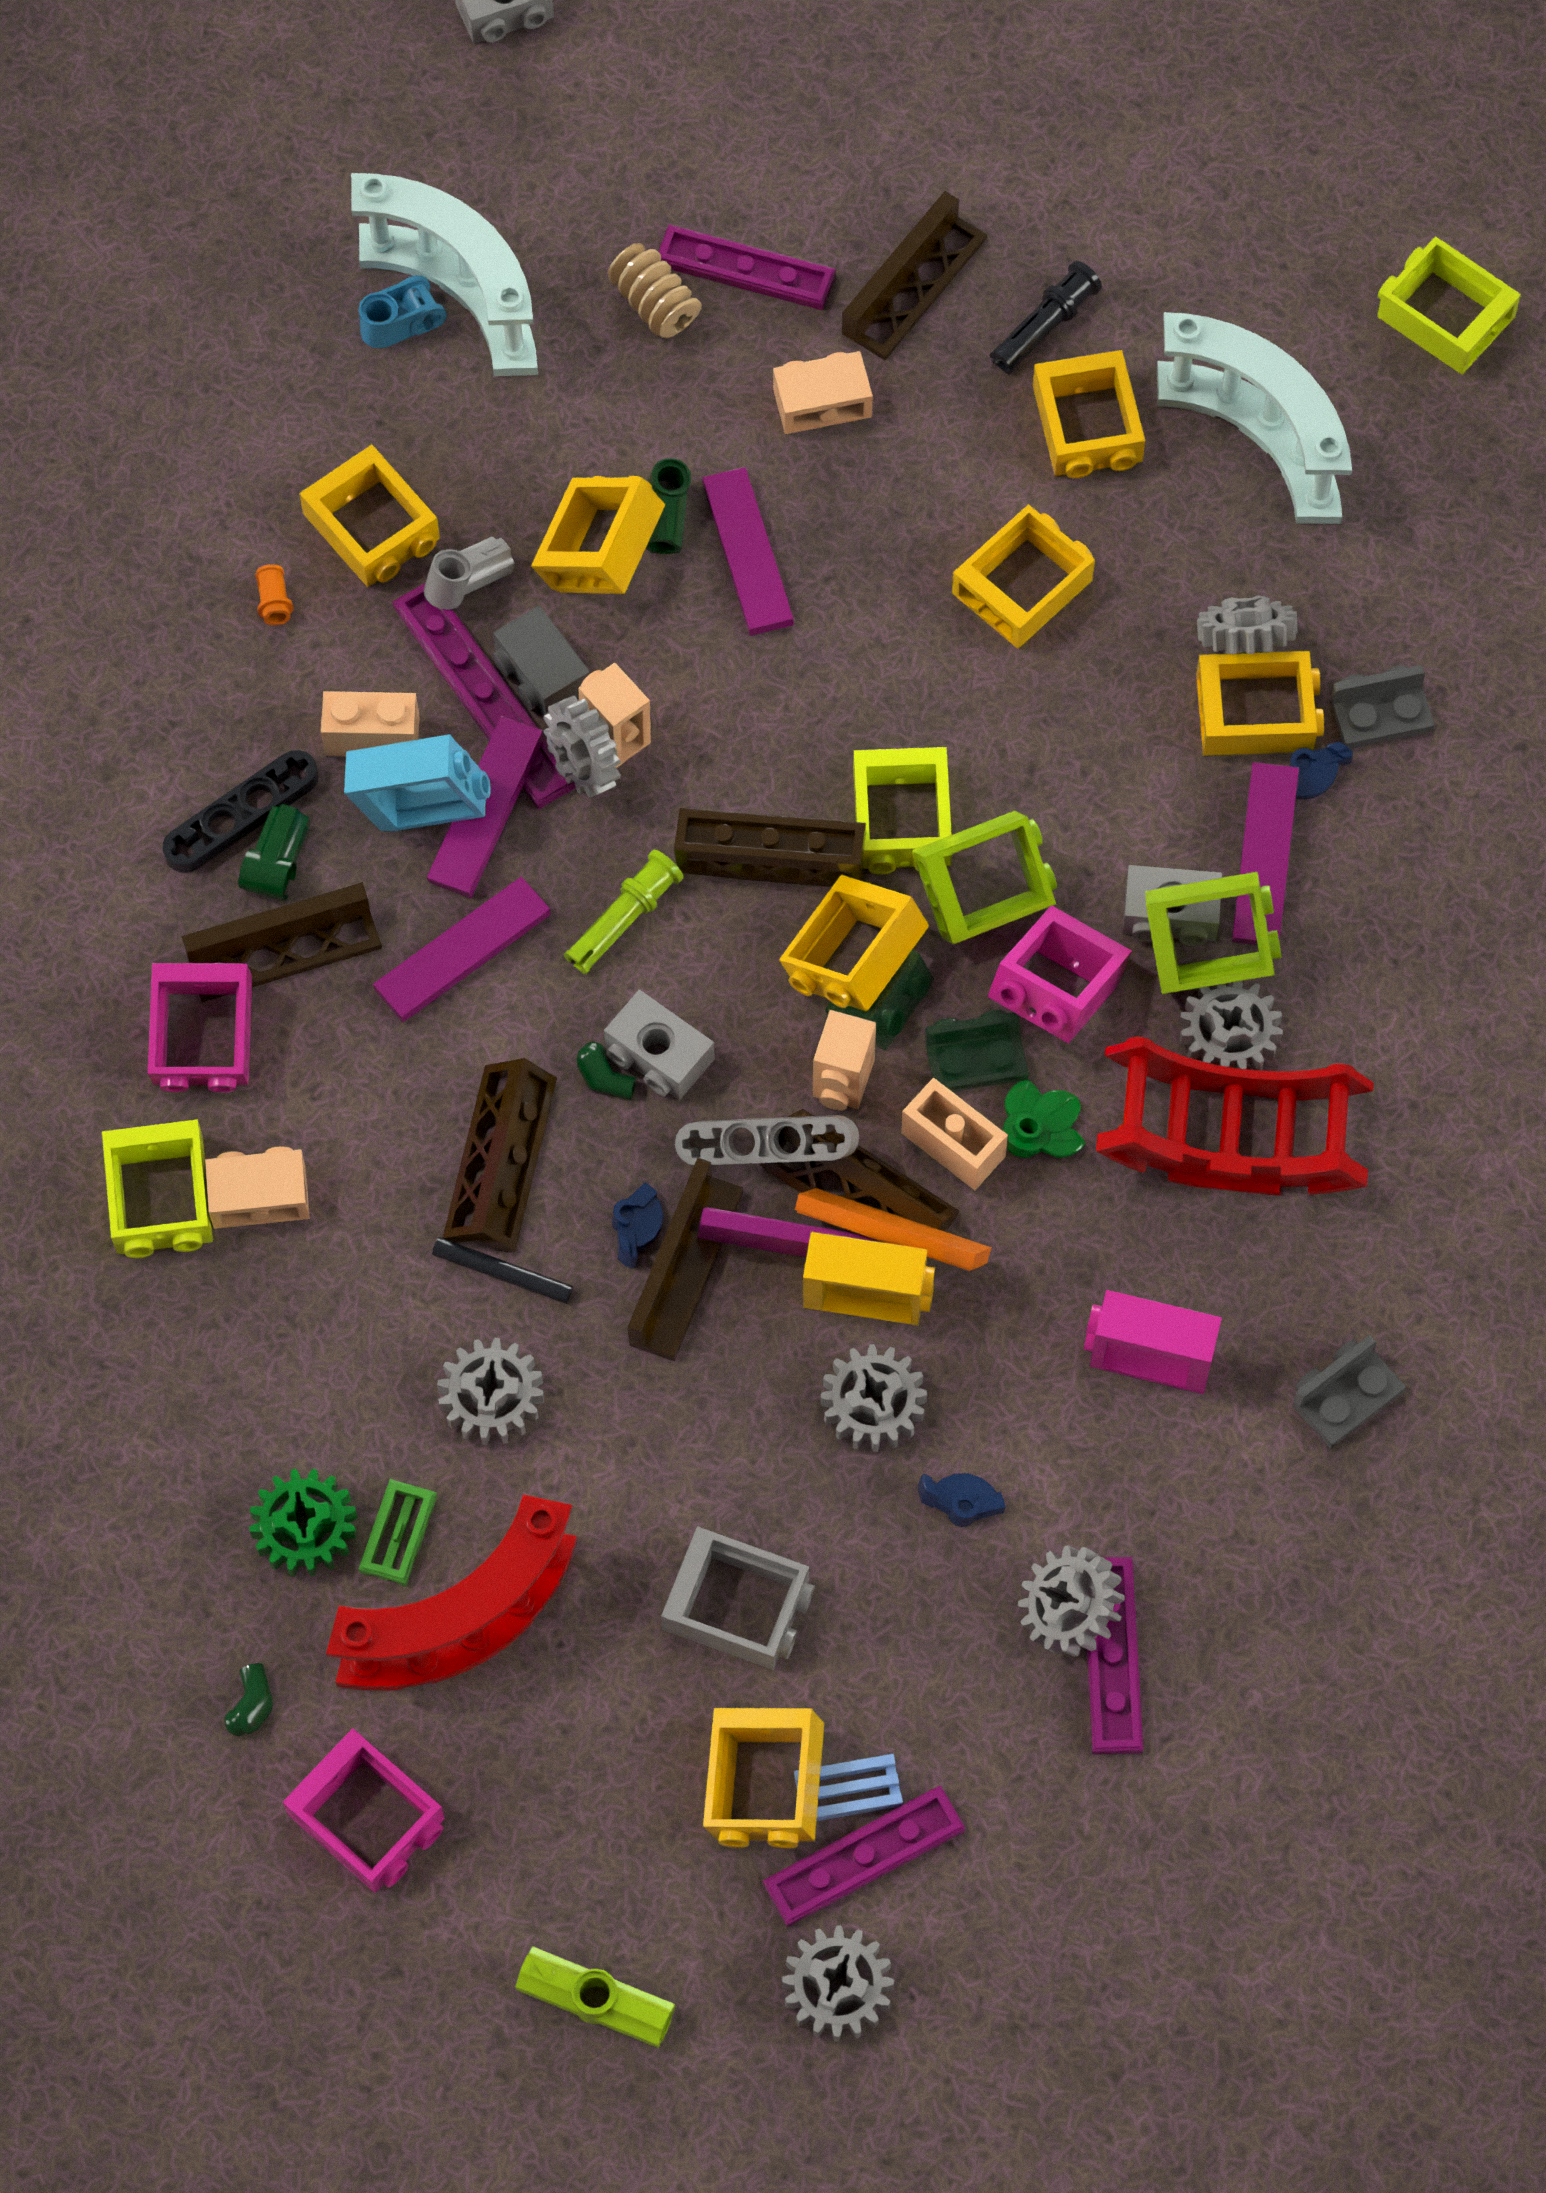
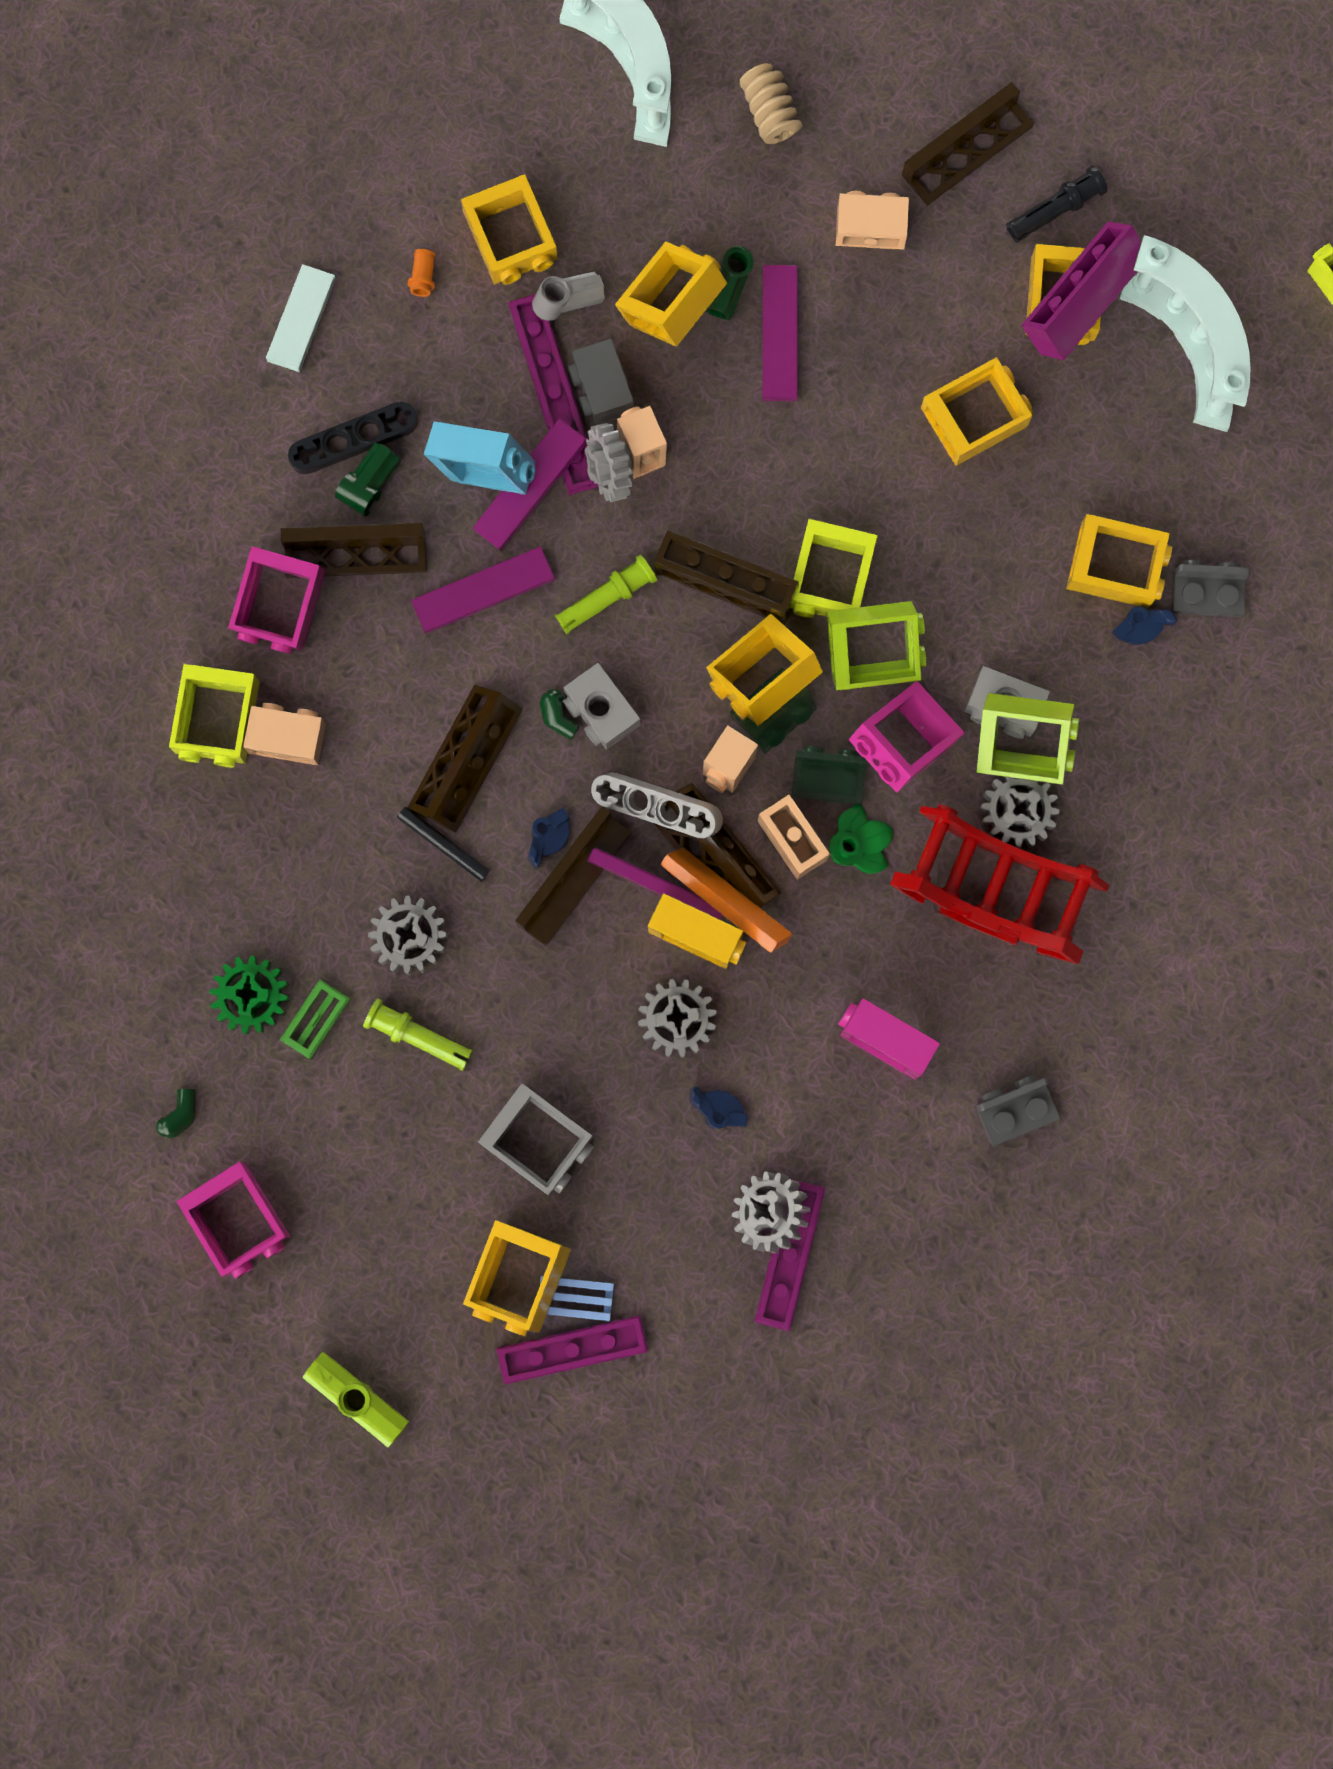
camera: 15 degrees right, 15 degrees up
(131, 688) = (300, 318): none -> light aqua tile
(367, 720) = (463, 397): light nougat brick -> none
(401, 312) = (579, 69): dark azure piece -> none
(466, 1622) = (344, 1108): red fence -> none
(502, 1505) = (402, 1027): none -> lime pin
(747, 267) = (846, 101): magenta tile -> none
(859, 1993) = (539, 1451): light grey gear -> none
(1112, 398) = (1084, 291): none -> magenta brick
(1247, 625) = (1129, 499): light grey gear -> none
(1266, 843) = (1091, 673): magenta tile -> none

